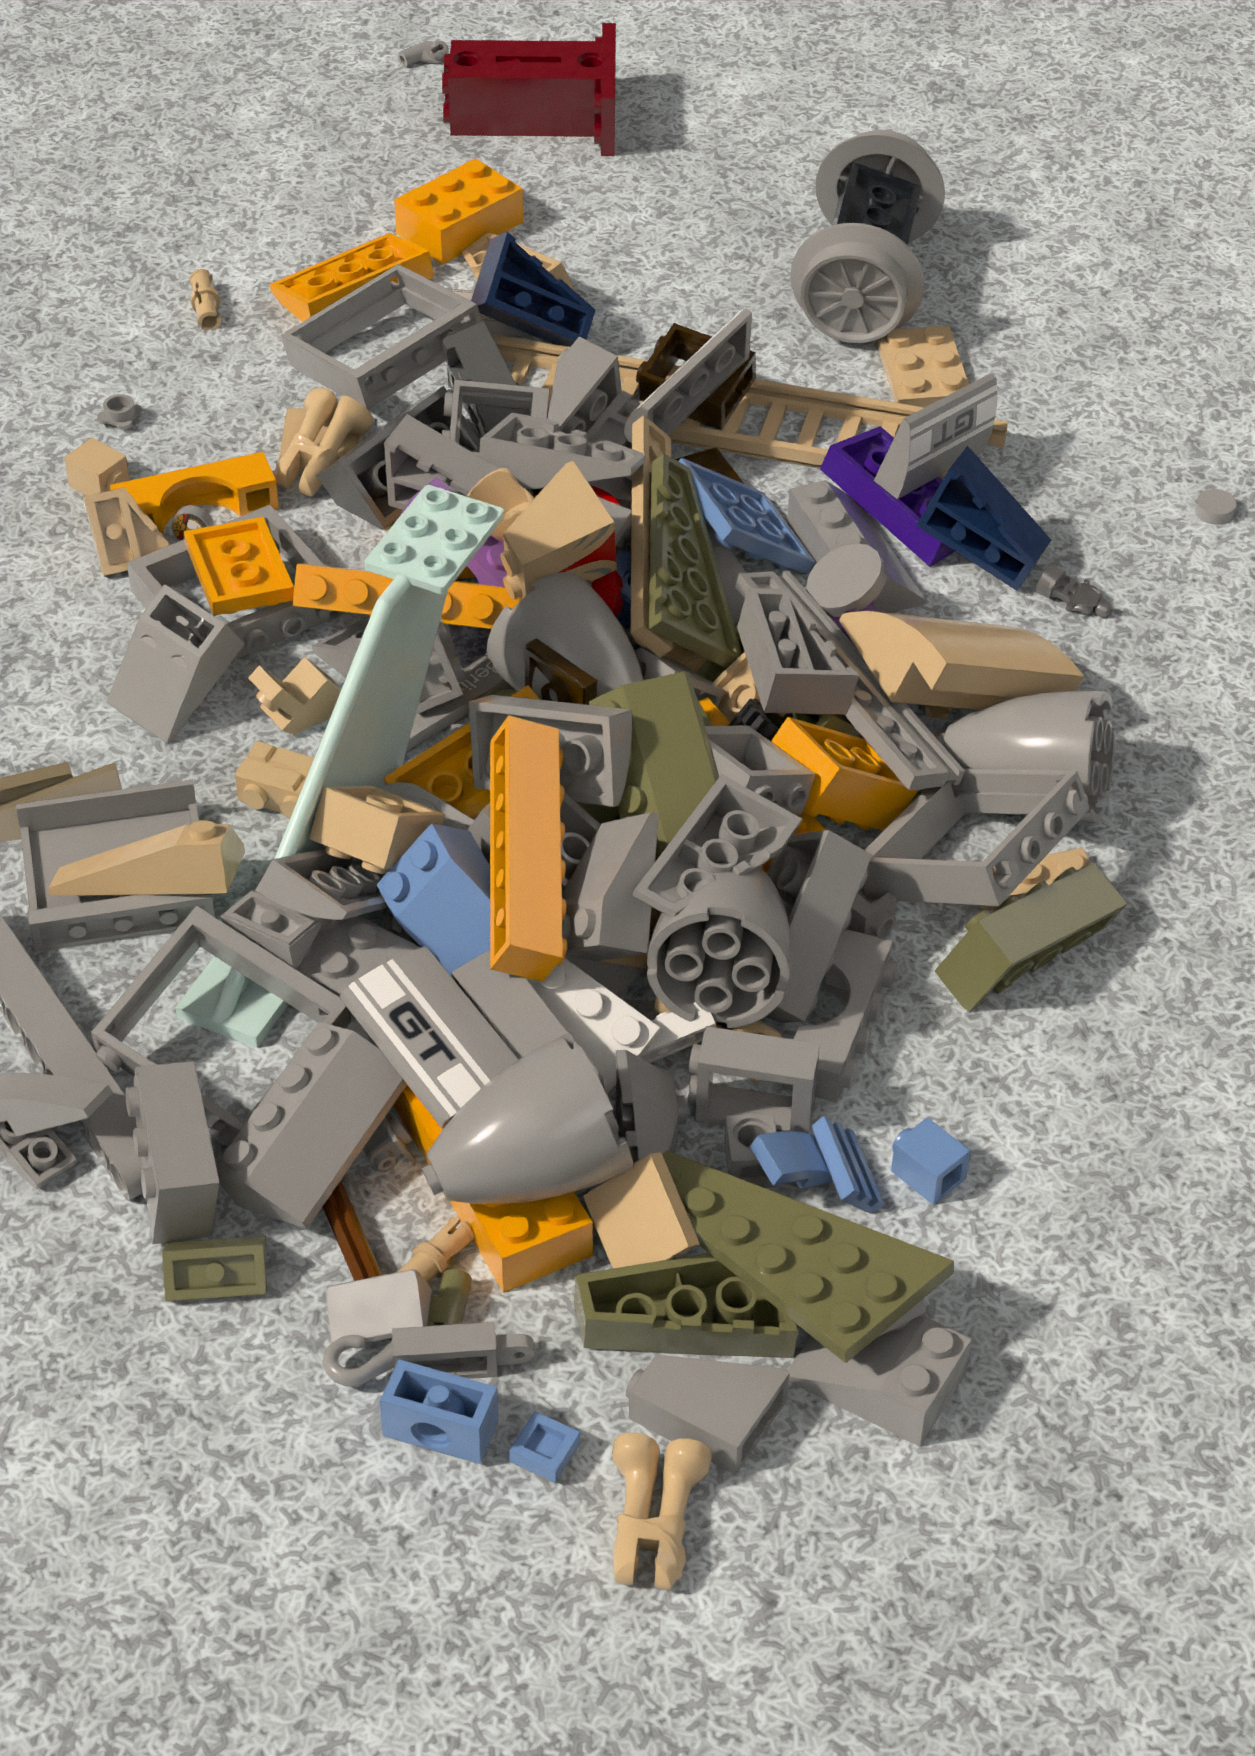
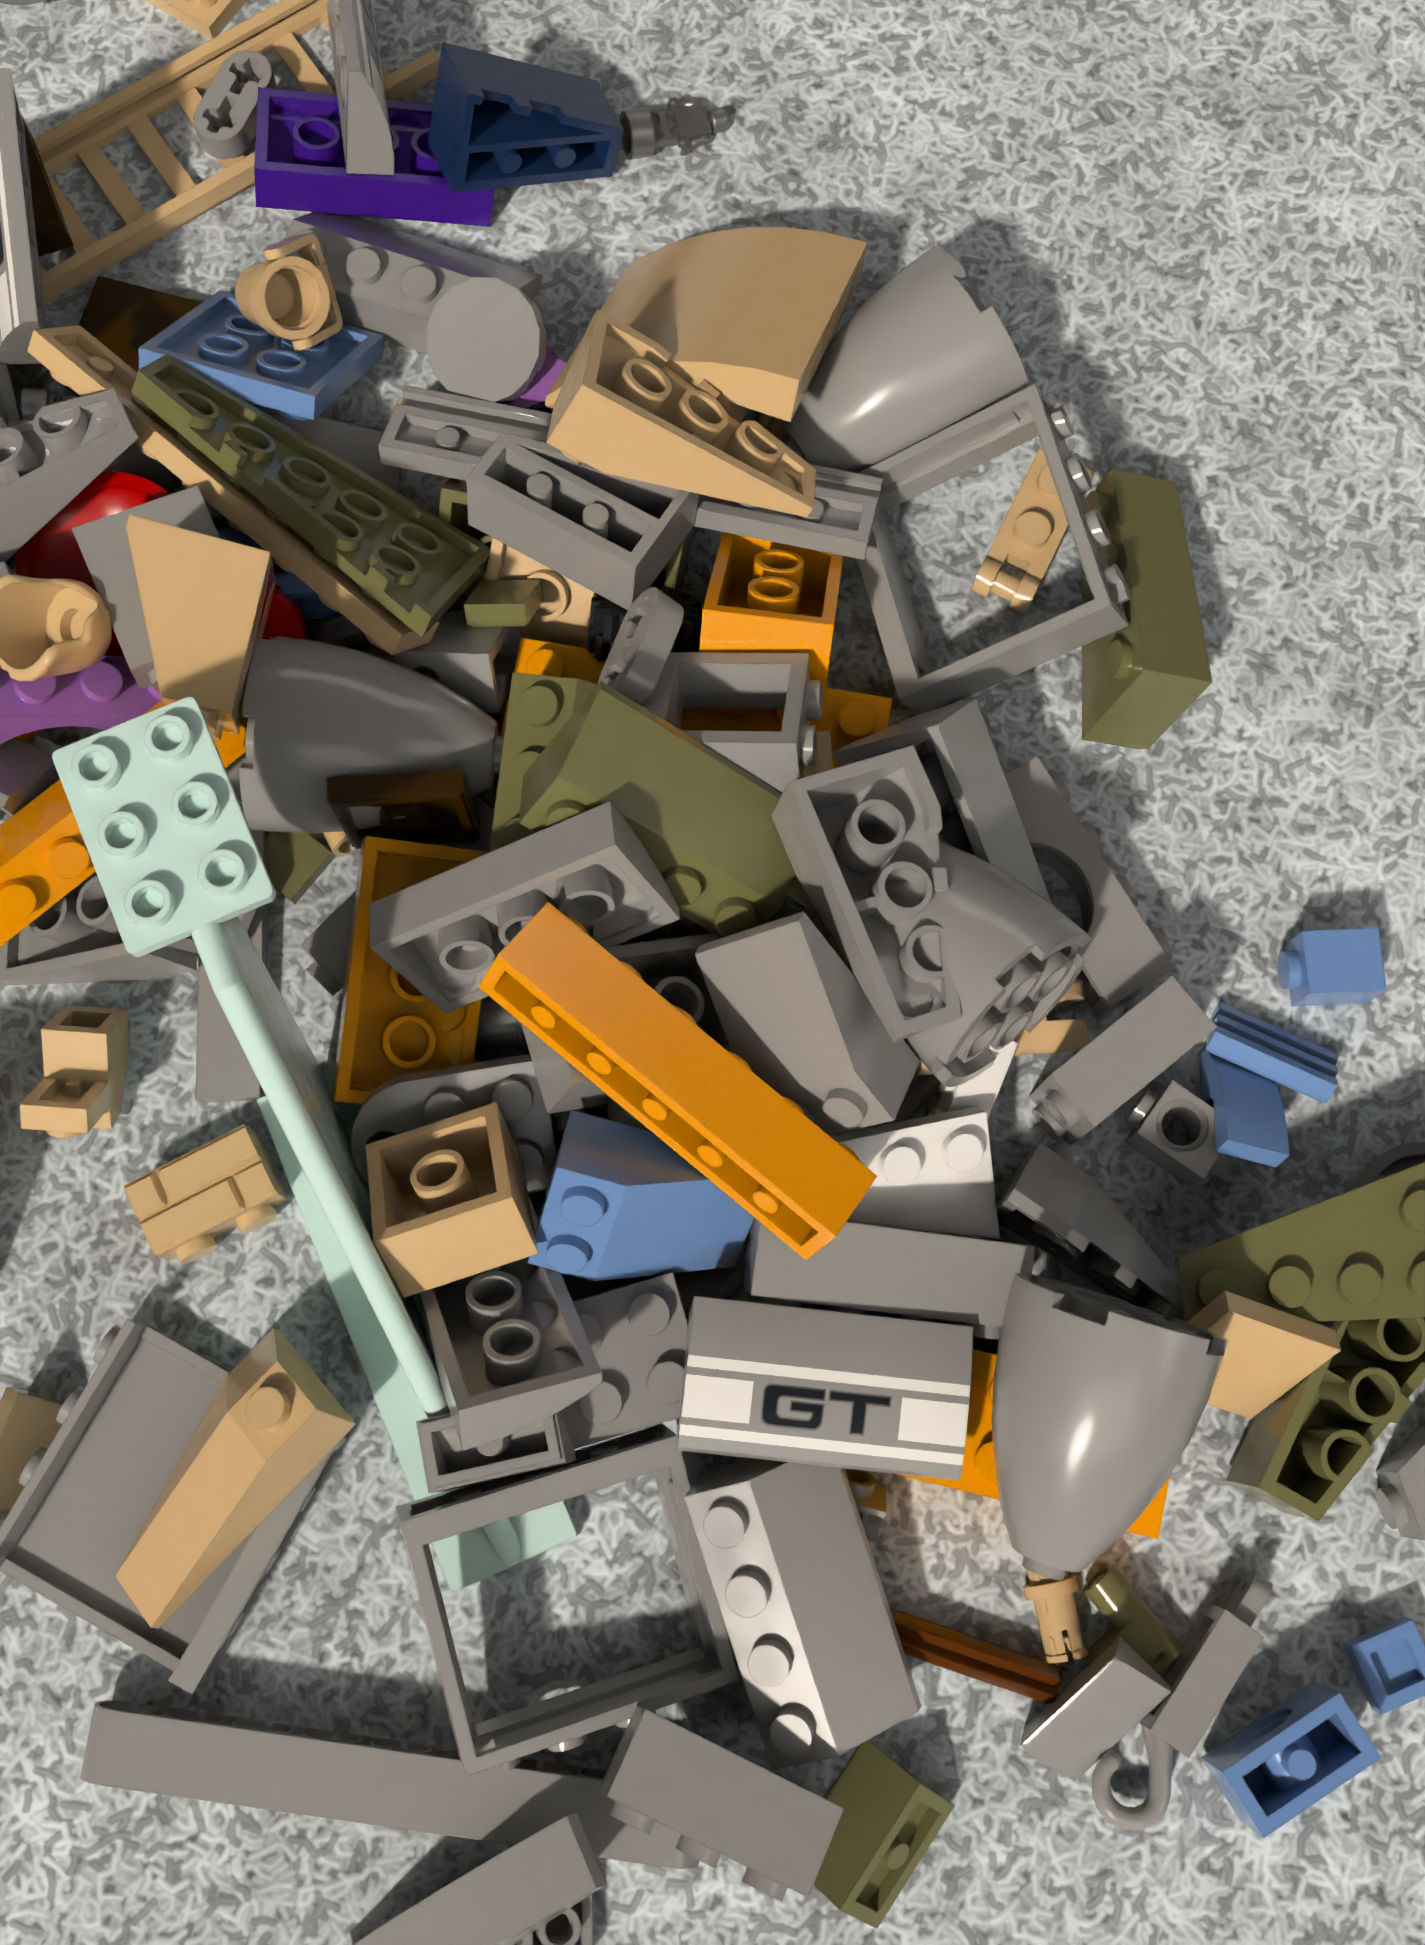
camera: 50 degrees left, 30 degrees up
(717, 677) = (503, 603): none -> olive tile
(741, 708) = (643, 645): none -> light grey beam
(778, 494) = (291, 293): none -> tan piece
(855, 424) = (227, 101): none -> light grey beam
(857, 623) = (652, 426): none -> tan wedge

